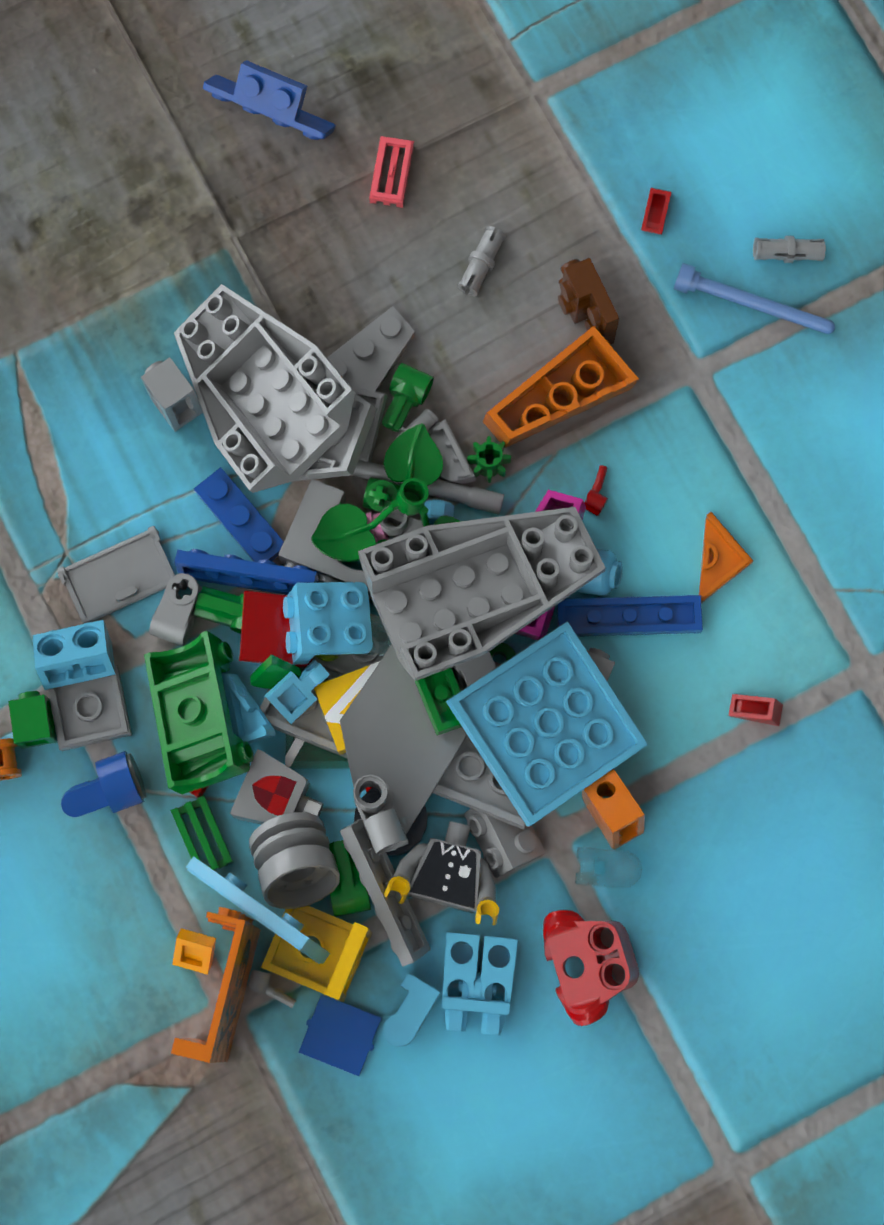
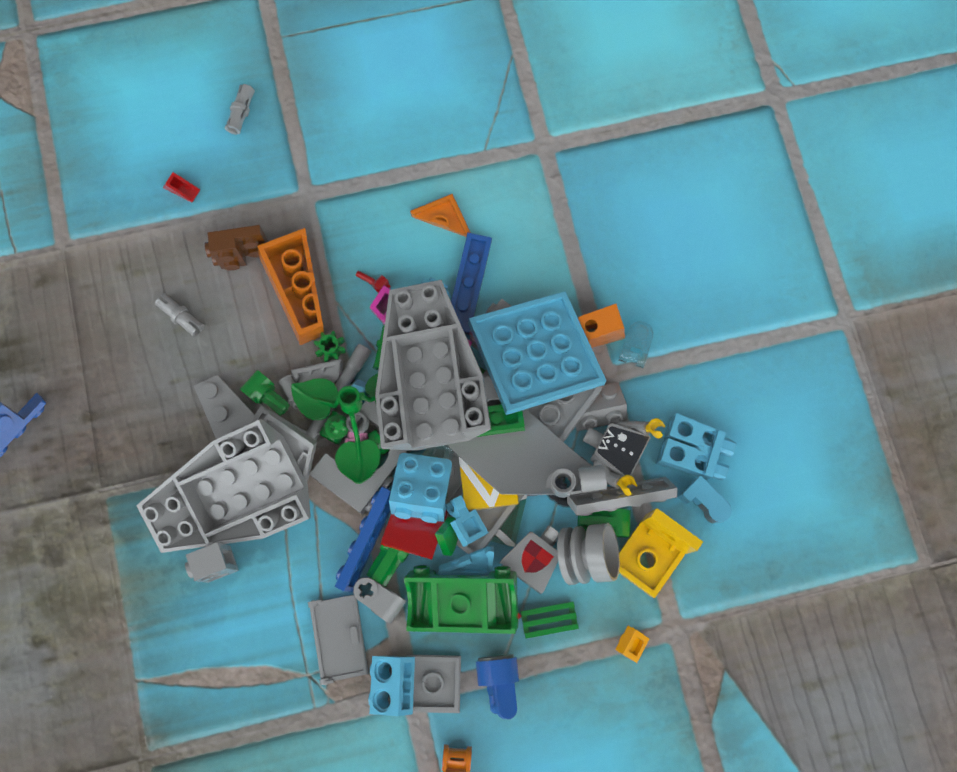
camera: 80 degrees left, 0 degrees up
(32, 720) = (432, 729): green brick -> none
(231, 992) = (713, 647): orange panel -> none
(232, 889) = (601, 603): medium azure plate -> none
(239, 517) = (320, 536): blue plate -> none
(259, 983) = (664, 602): light grey hand -> none
(340, 1035) = (713, 556): blue piece -> none
(388, 197) = (107, 370): coral tile -> none
(589, 995) = (722, 378): red piece -> none
(689, 280) = (240, 179): medium blue piece -> none
(756, 709) = (552, 221): red piece -> none

